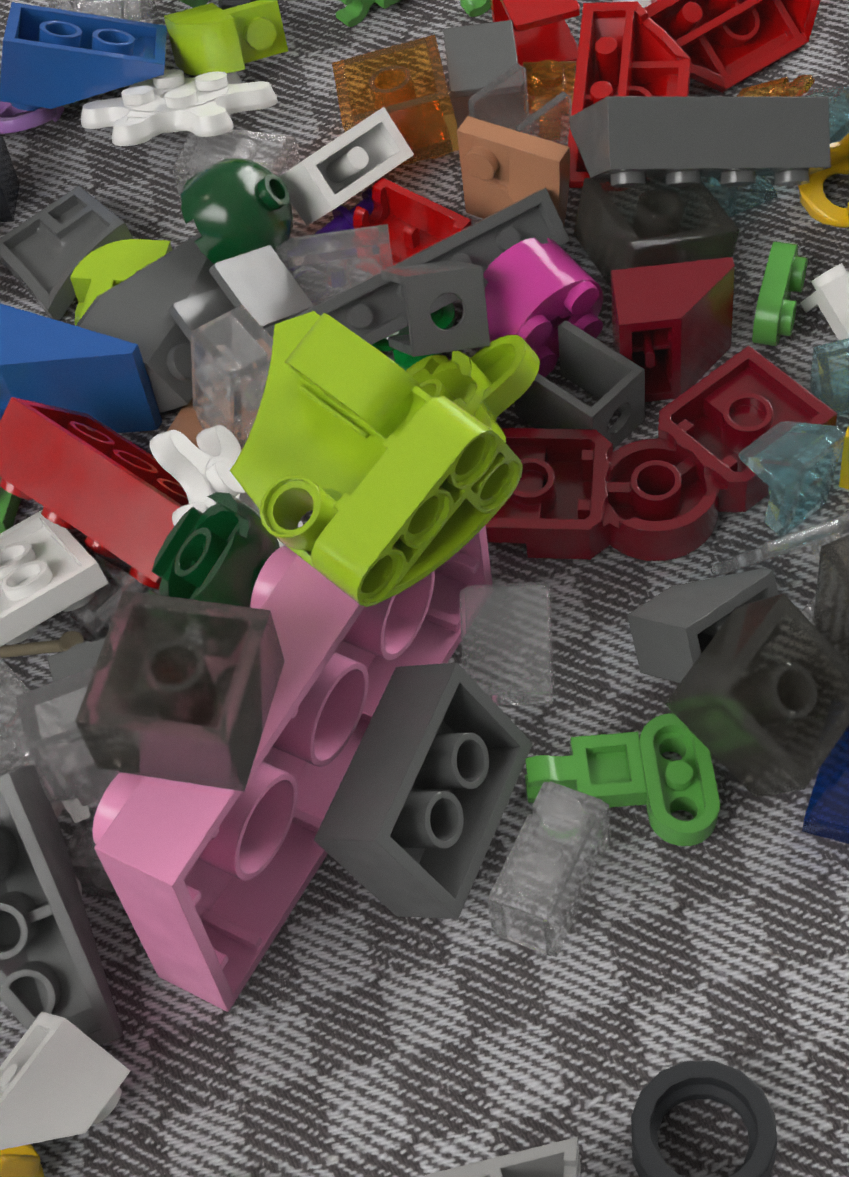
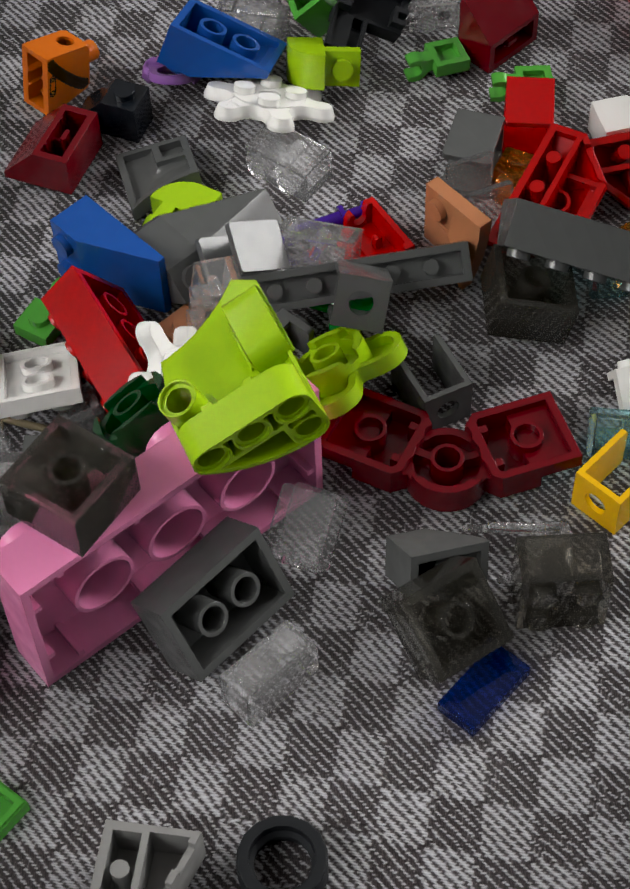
camera: 15 degrees right, 0 degrees up
(237, 208) = (269, 188): dark green cylinder -> none
(346, 166) = (353, 181): white slope -> none
(411, 88) = (405, 149): clear orange brick -> none
(535, 291) = (427, 308): dark pink brick -> none
(597, 766) = (329, 626): bright green plate -> none
(673, 321) = (507, 359): dark red slope -> none
(678, 784) = (372, 651): bright green plate -> none
(774, 309) = (586, 367): bright green plate -> none
(797, 466) = (538, 483): clear light blue slope -> none

